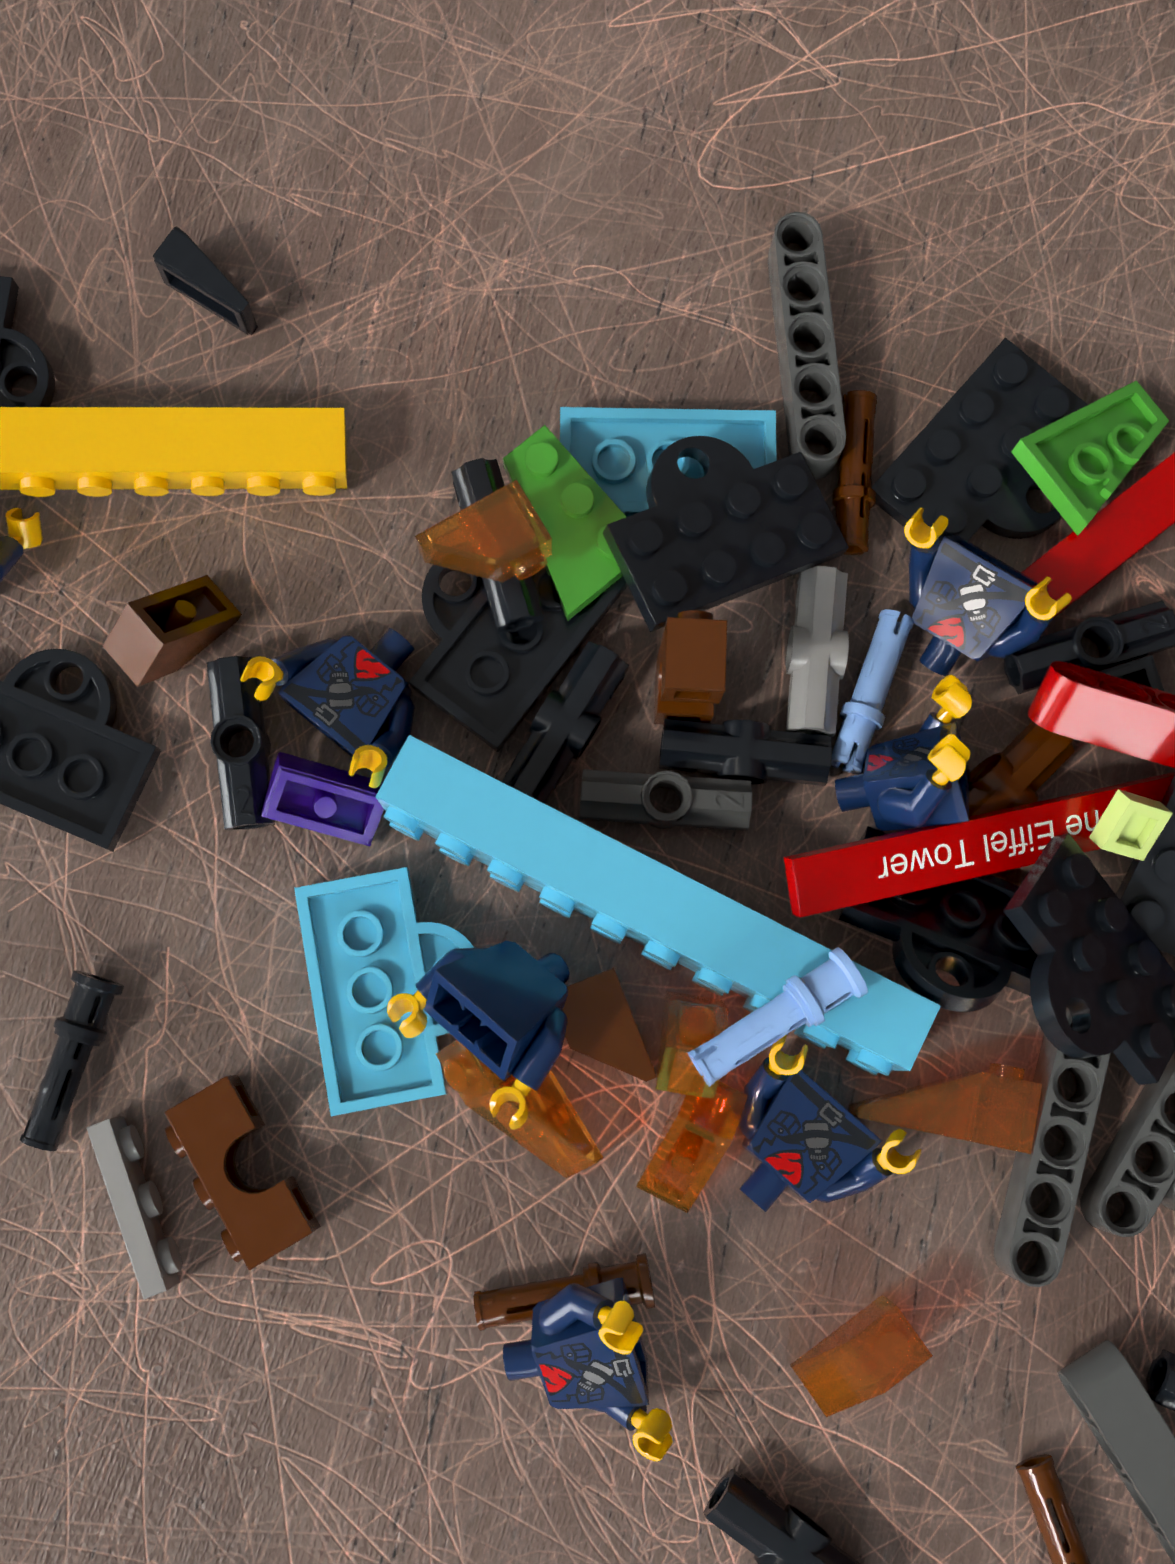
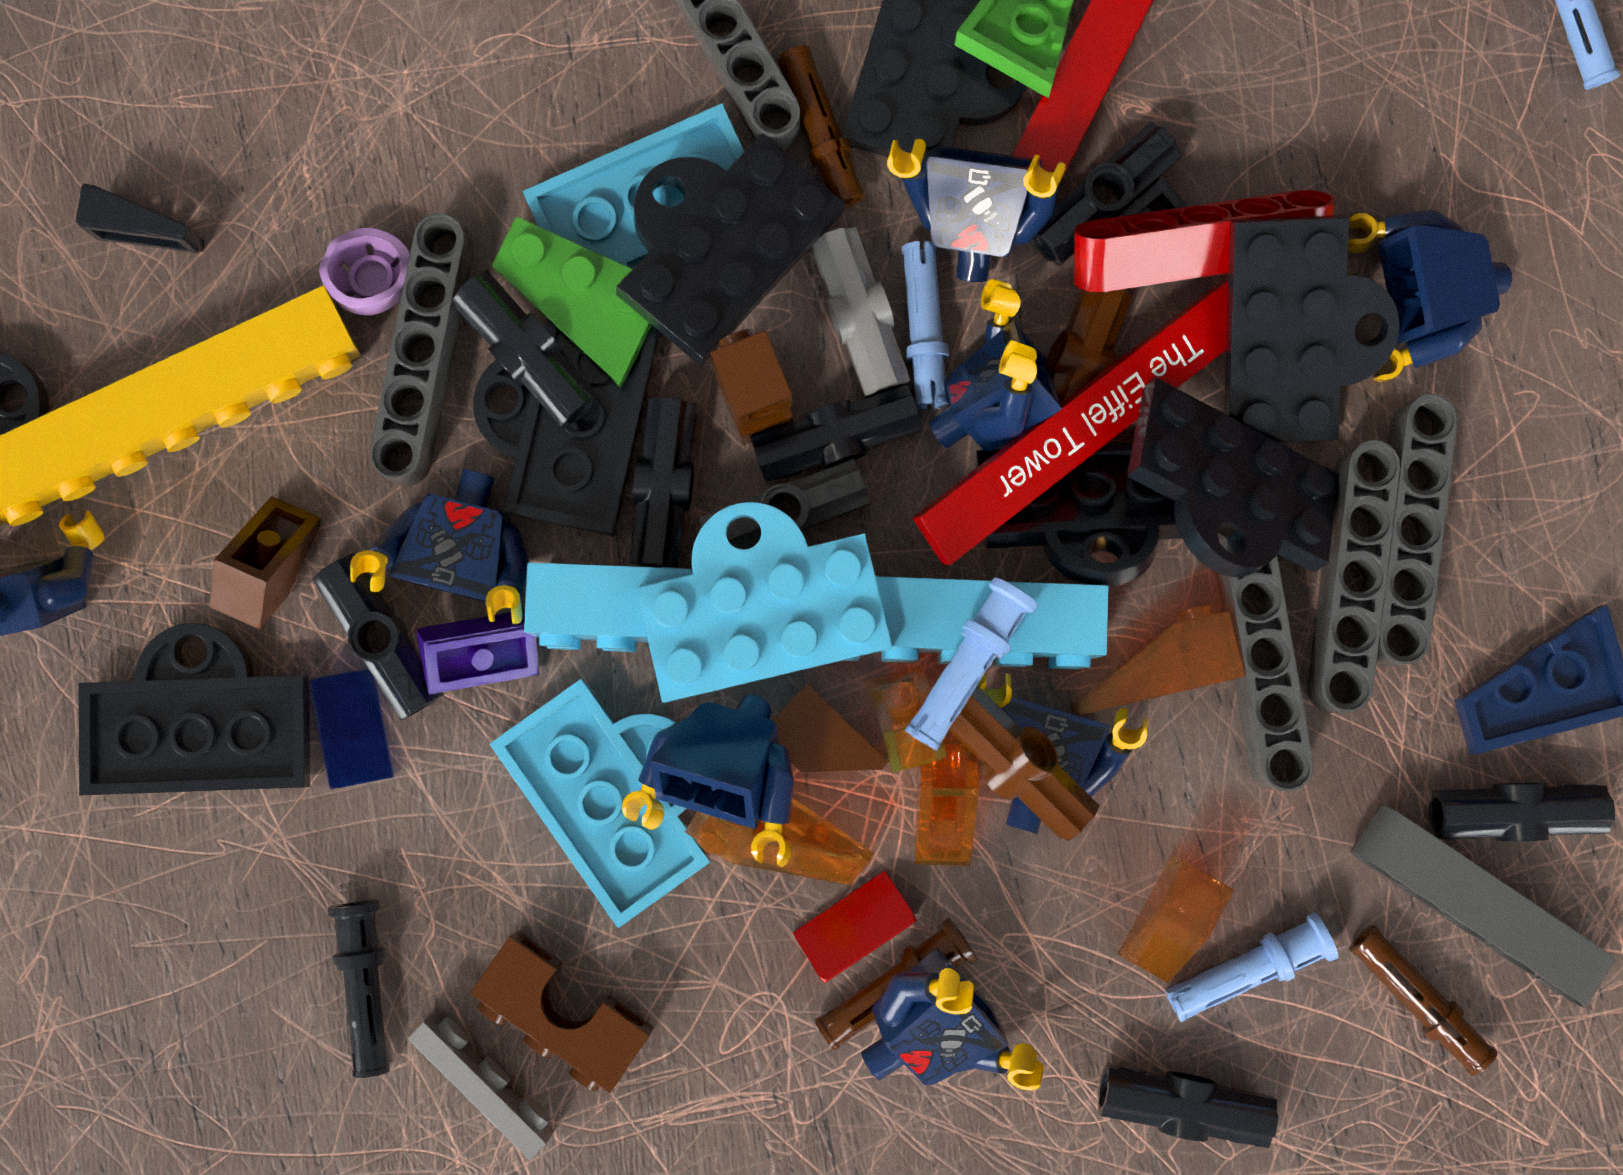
camera: 20 degrees left, 5 degrees up
(175, 816) = (351, 729): none -> clear blue slope
(389, 426) = (371, 277): none -> lavender helmet
(396, 531) = (414, 325): none -> dark grey beam
(490, 538) = (517, 348): clear orange slope -> none
(552, 1220) = (854, 926): none -> red slope
(605, 874) = (761, 607): none -> medium azure plate
(783, 1140) = (1023, 766): none -> reddish brown piece
(941, 1442) = (1274, 958): none -> light blue pin
(1130, 825) = (1208, 344): yellowish green plate -> none

